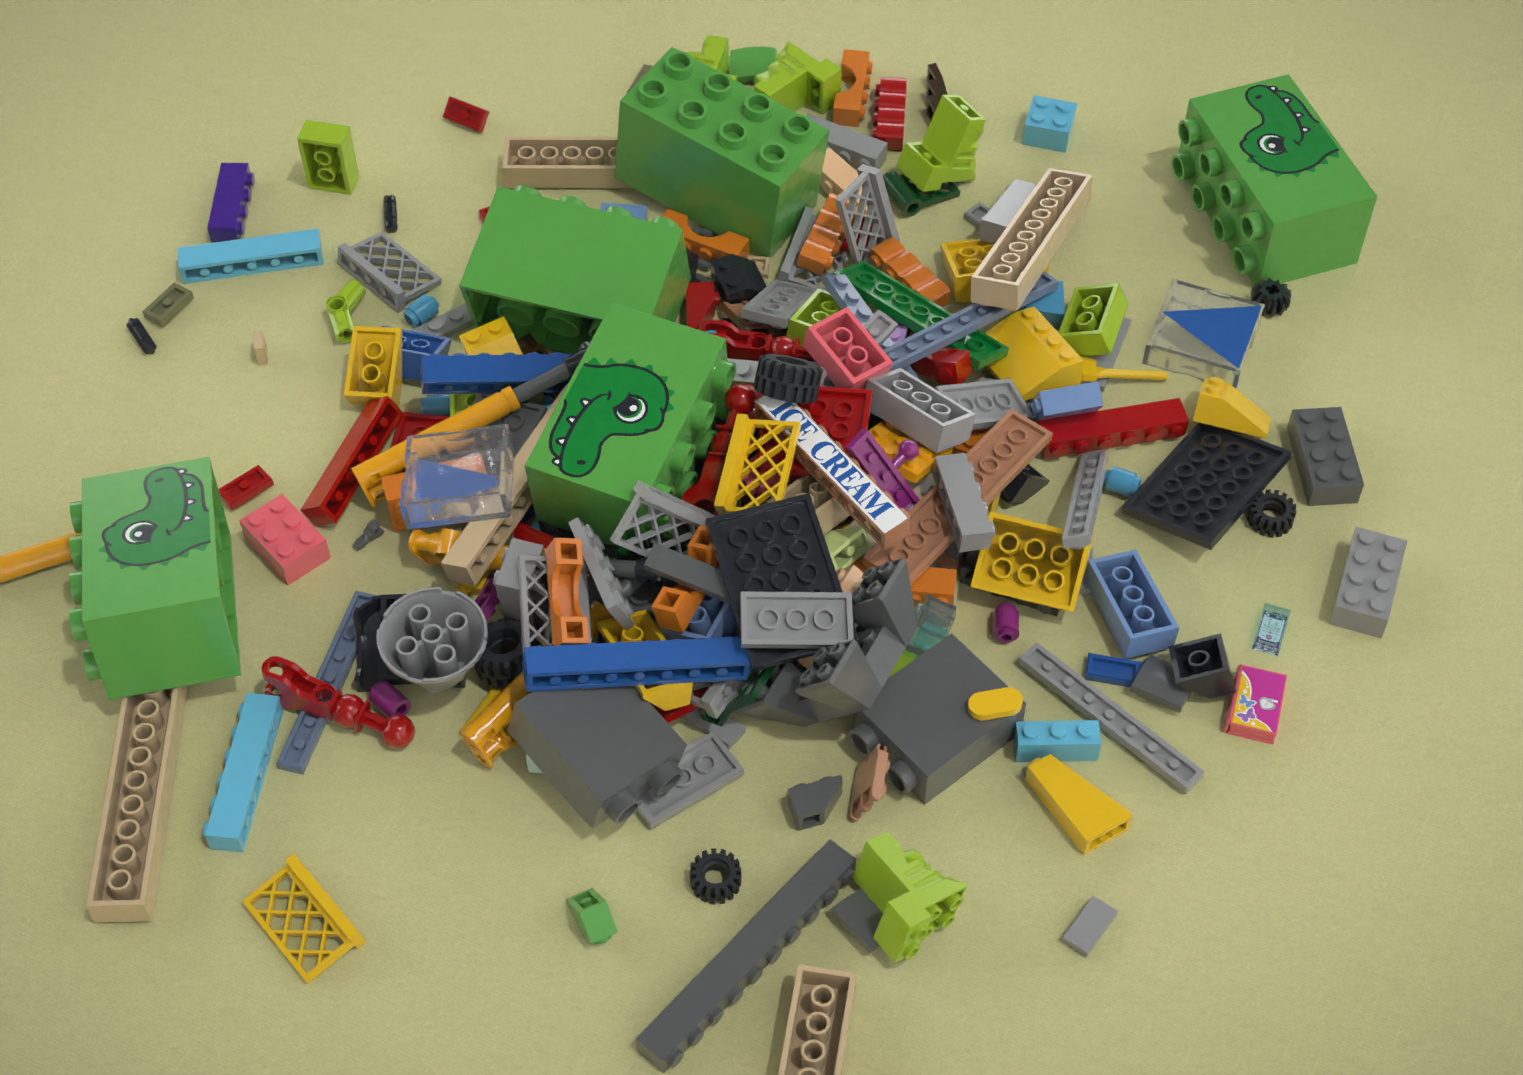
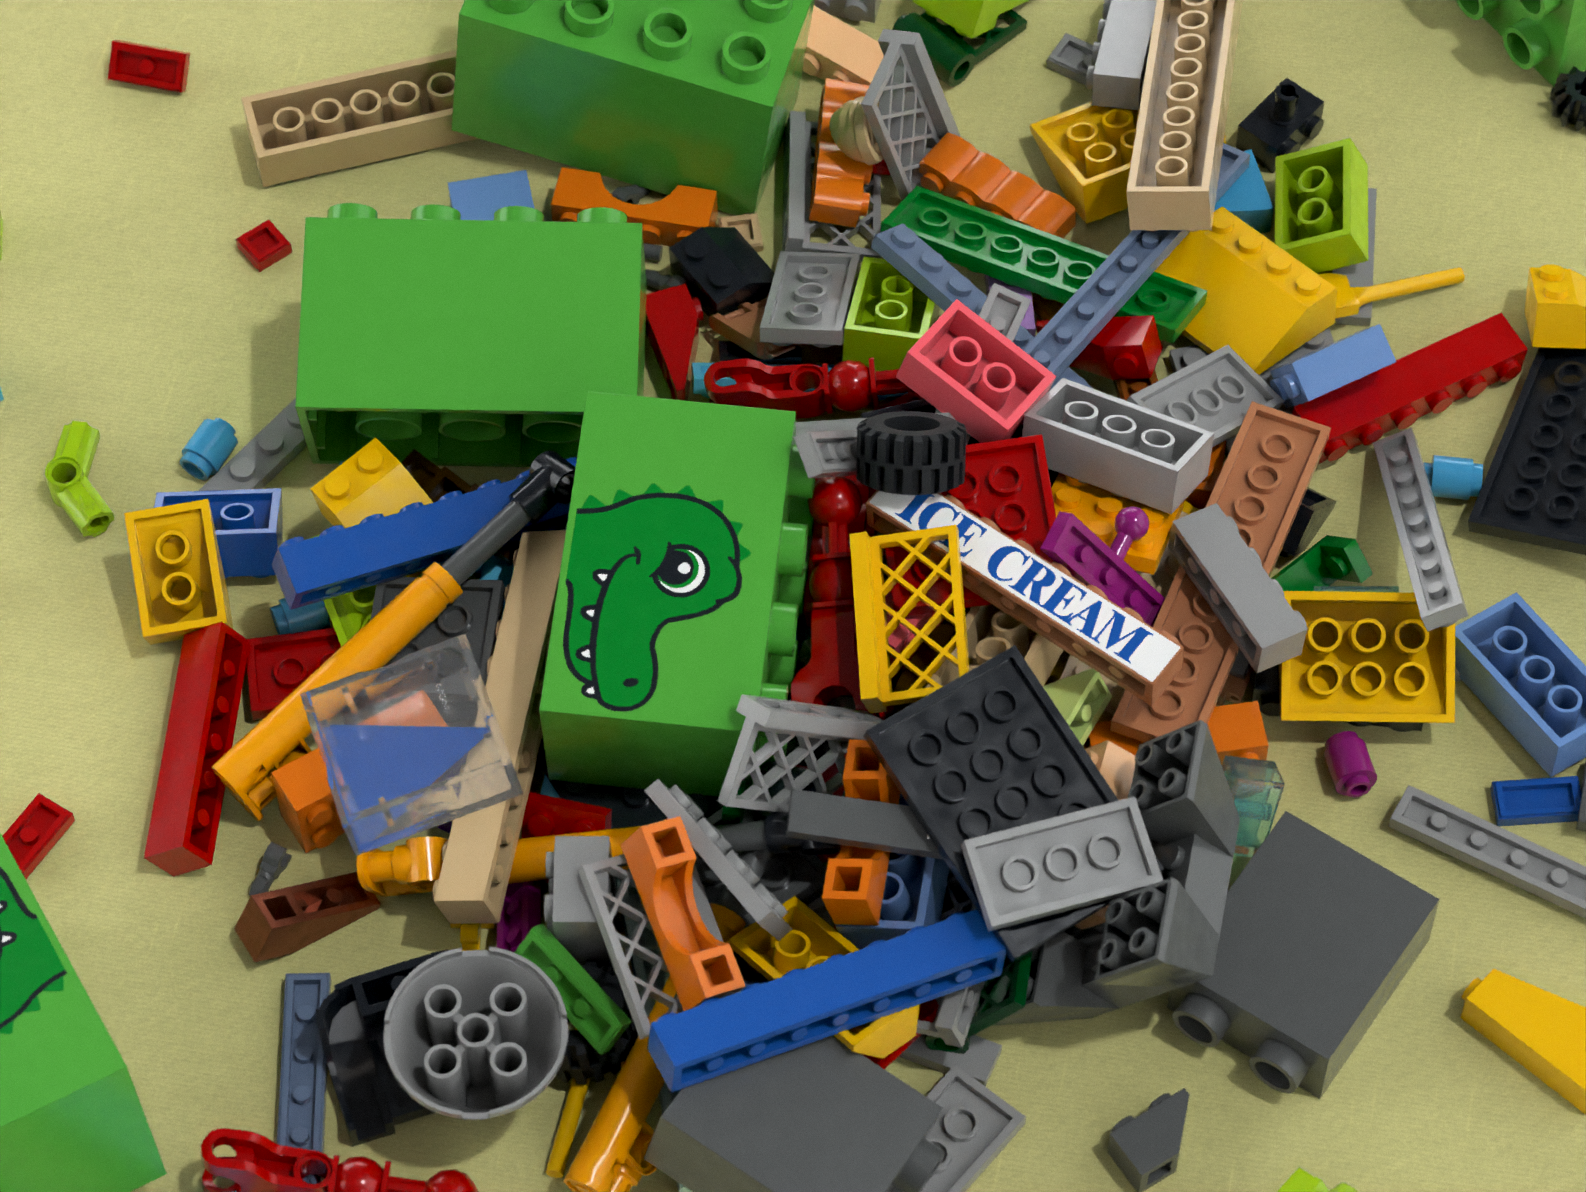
camera: 15 degrees left, 5 degrees up
(285, 539) = (136, 914): coral brick -> none
(375, 277) = (105, 405): light grey fence -> none
(375, 561) = (298, 915): none -> copper slope
(388, 699) = (414, 1148): magenta brick -> none
(390, 213) = (86, 280): black axle -> none
(500, 629) = (585, 1001): none -> bright green tile
(737, 366) = (828, 452): none -> light grey tile
(831, 221) = (853, 133): none -> tan hat
(869, 782) = (1231, 1088): nougat plate -> none
(995, 703) = (1394, 913): yellow tile -> none
(1032, 509) = (1325, 563): none -> green bracket
(1061, 739) = (1496, 940): medium azure brick -> none
(1087, 270) = (1281, 123): none -> black brick
(1203, 333) = (1500, 188): clear tile -> none

